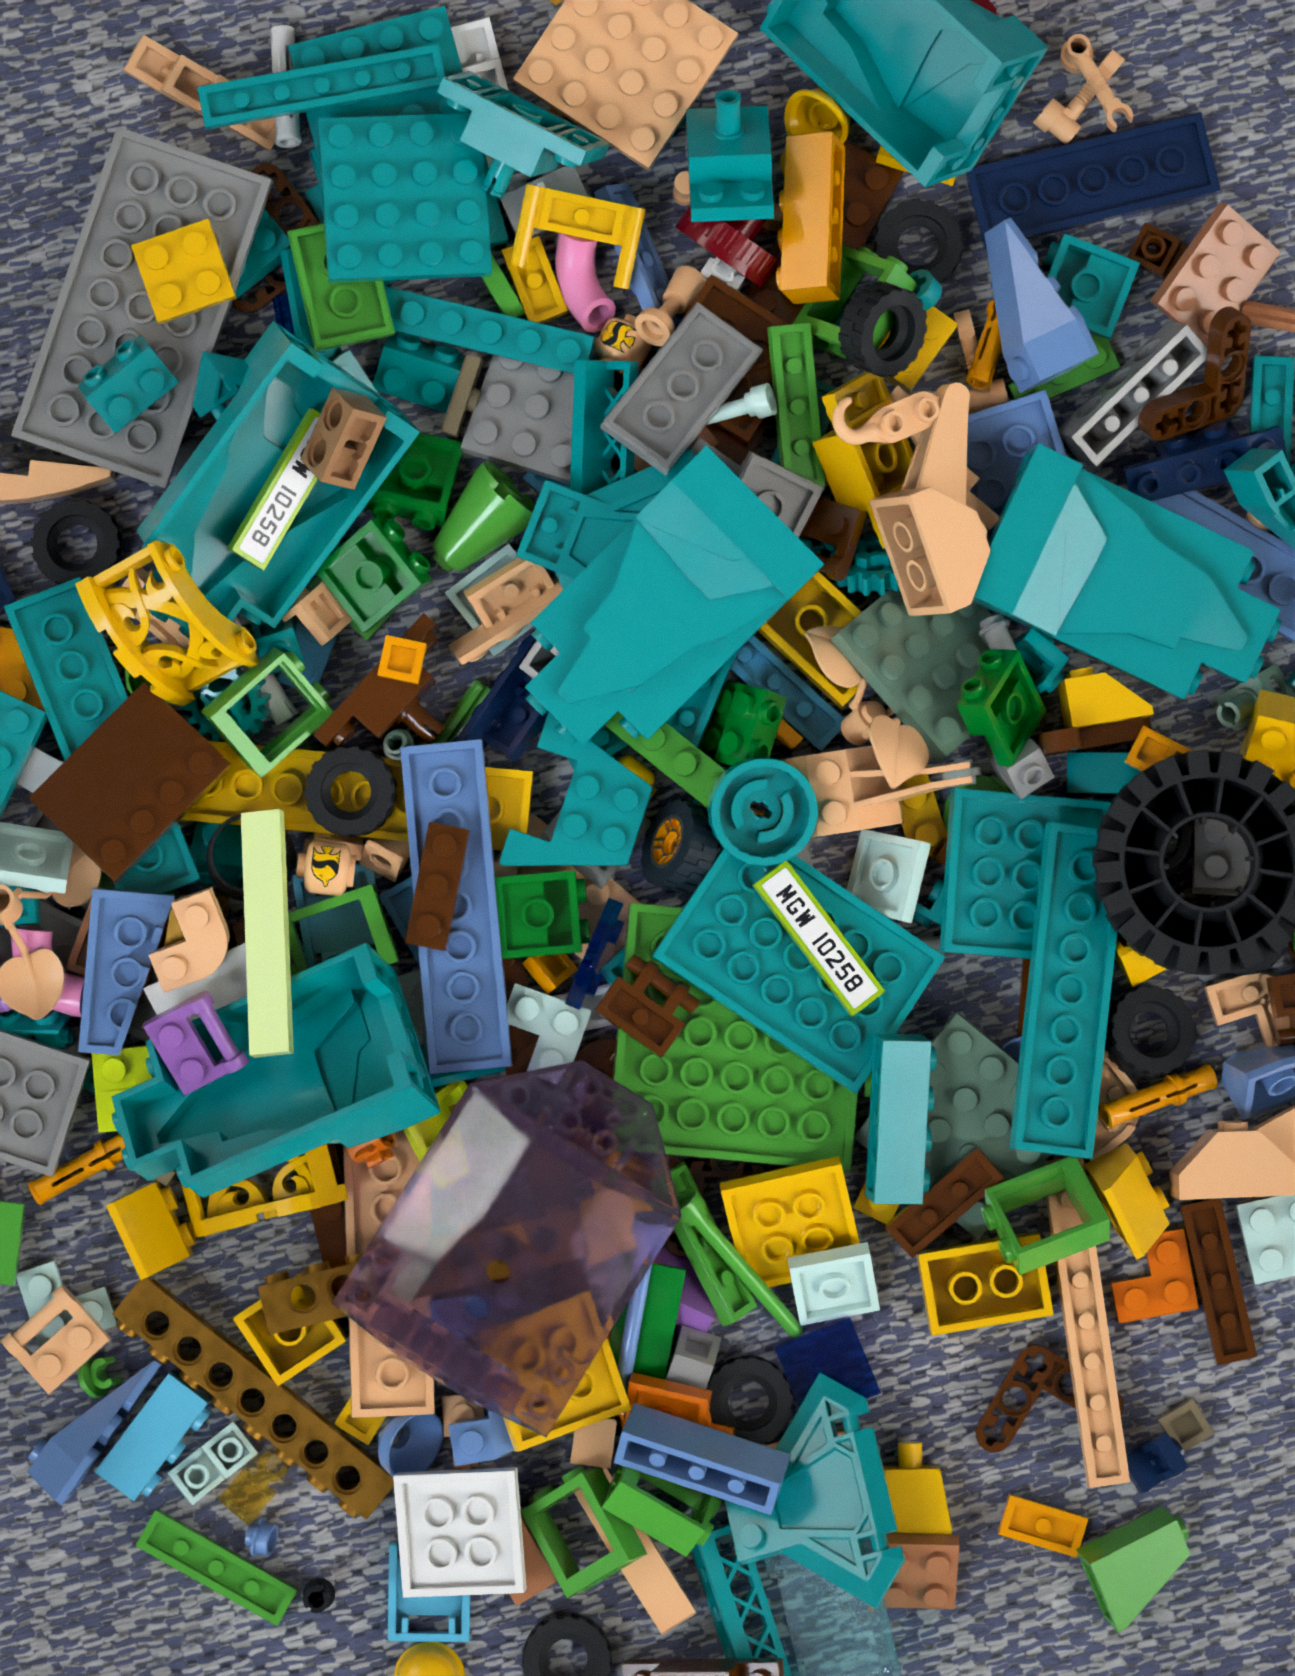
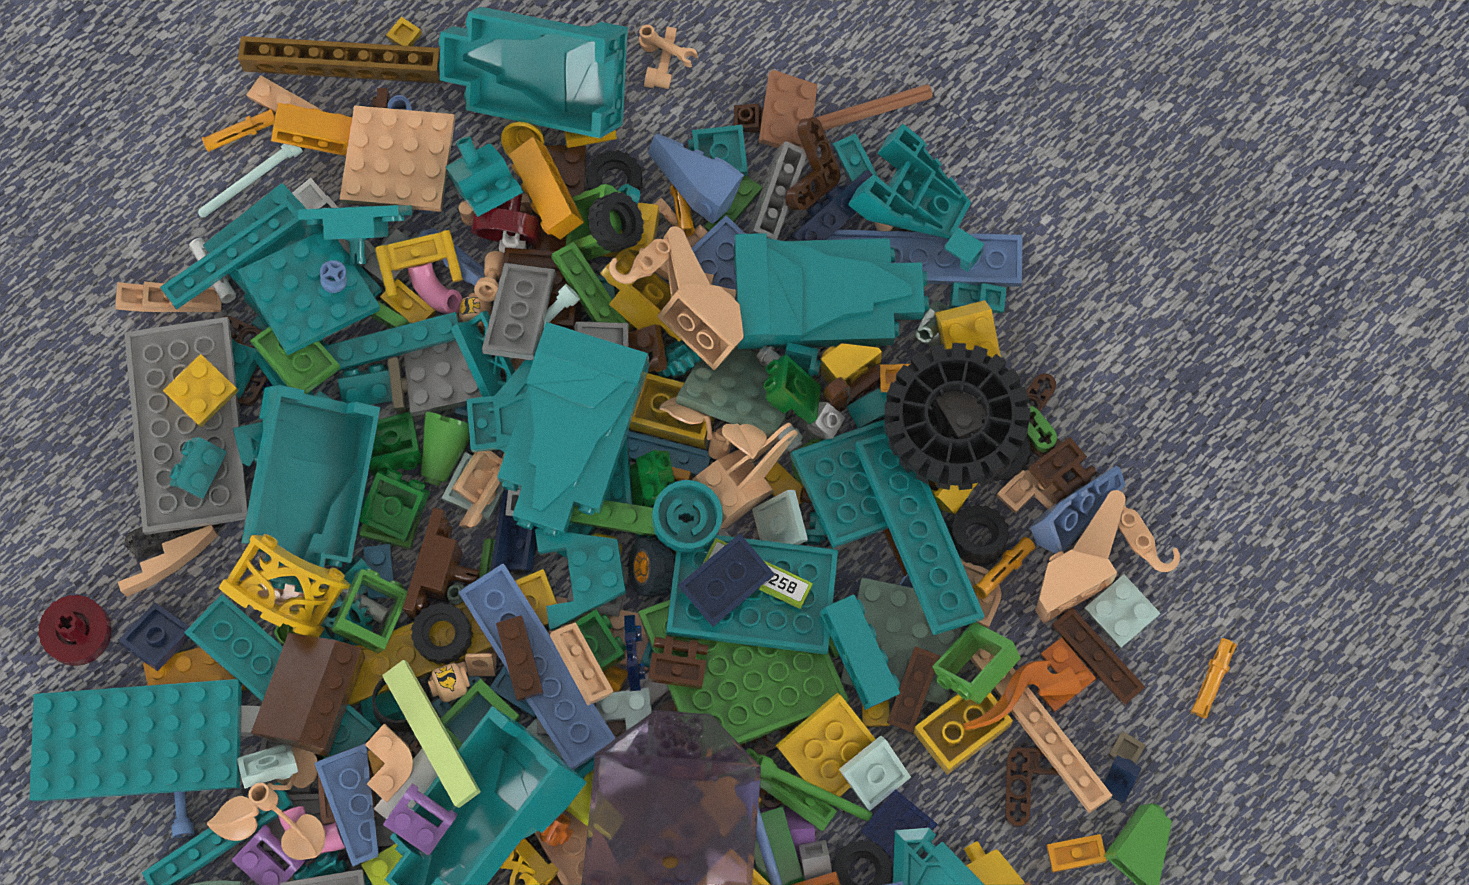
camera: 25 degrees left, 15 degrees down
(75, 513) = (197, 567): black tyre -> none
(277, 500) = (319, 481): tile -> none
(319, 613) = (373, 543): light nougat bracket -> none
(343, 438) = (337, 431): medium nougat brick -> none
(402, 659) = (433, 537): light orange plate -> none
(447, 191) = (334, 270): none -> medium blue wheel
(516, 940) = (581, 663): none -> light nougat plate
(769, 931) = (726, 580): none -> dark blue plate
(1096, 178) = (695, 96): dark blue plate -> none
(1116, 1262) = (1031, 673): none -> orange piece
(1129, 1197) = (1027, 634): yellow slope -> none

